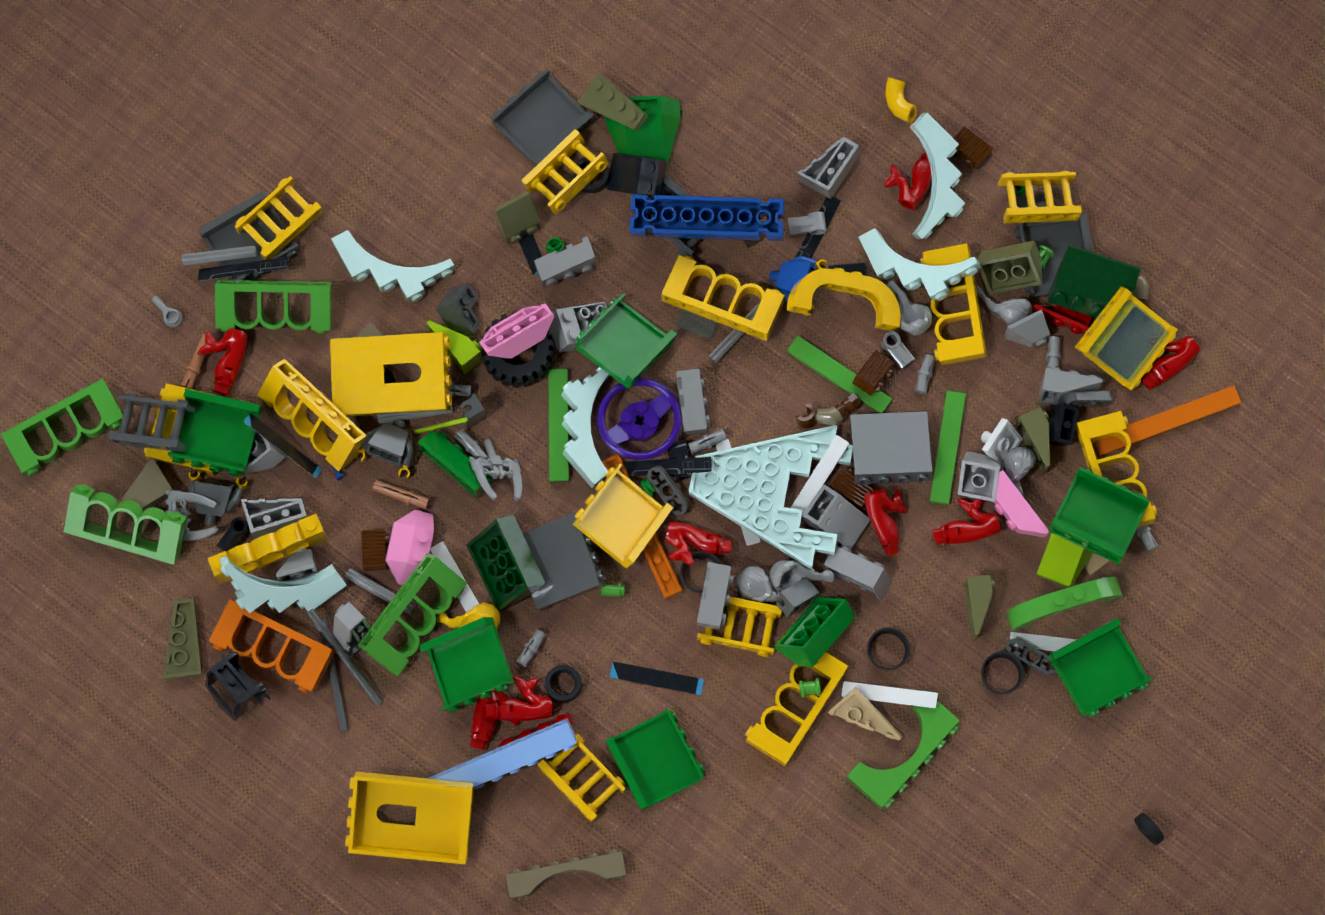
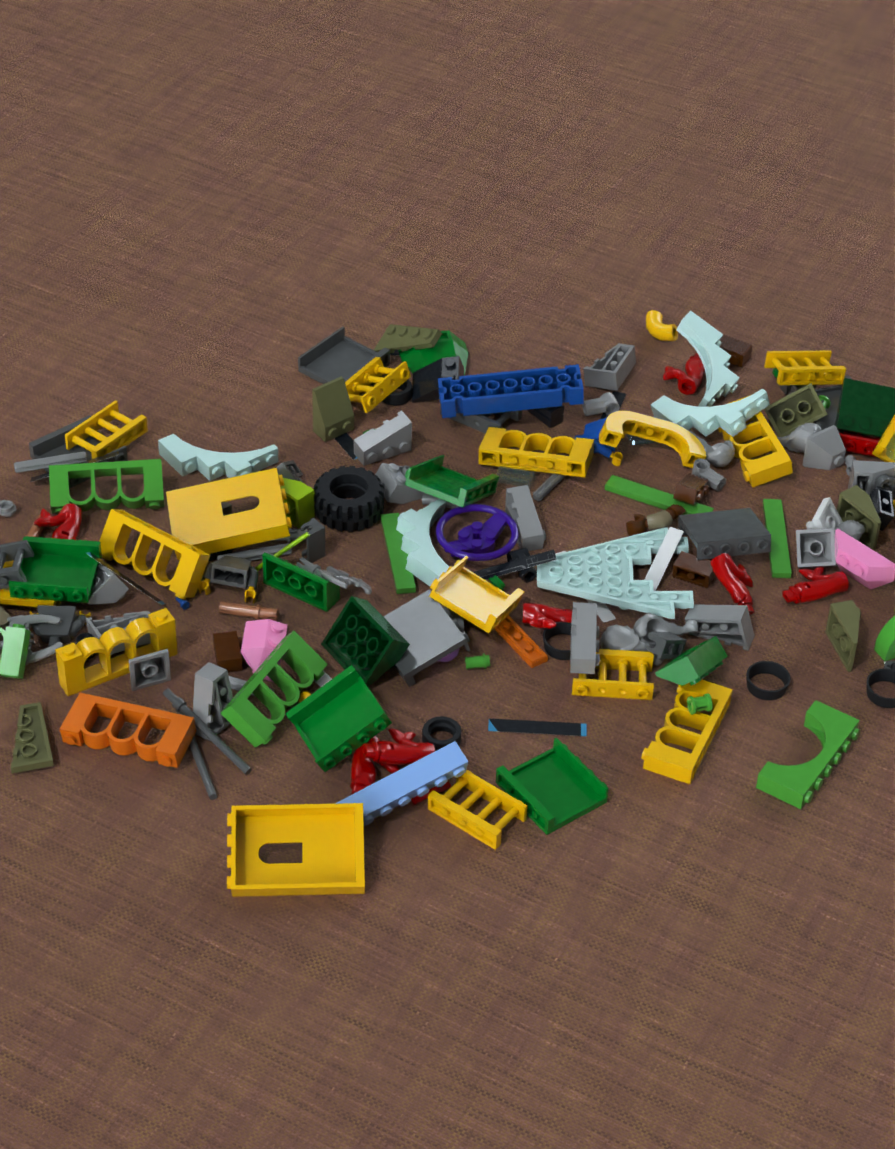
camera: 10 degrees left, 35 degrees down
(236, 684) = (94, 755): black animal -> none
(306, 591) = (130, 681): light aqua arch -> none
(518, 332) = (352, 470): bright pink wedge -> none
(526, 882) = (518, 878): dark tan arch -> none
(531, 649) = (402, 712): light grey pin -> none
(669, 482) = (513, 574): dark grey beam -> none
(707, 441) = (555, 545): light grey pin -> none
(835, 515) = (681, 577): light grey slope -> none
(859, 710) = (754, 728): tan wing -> none
(893, 695) = (781, 710): white sticker -> none
(925, 374) = (739, 491): light grey pin -> none

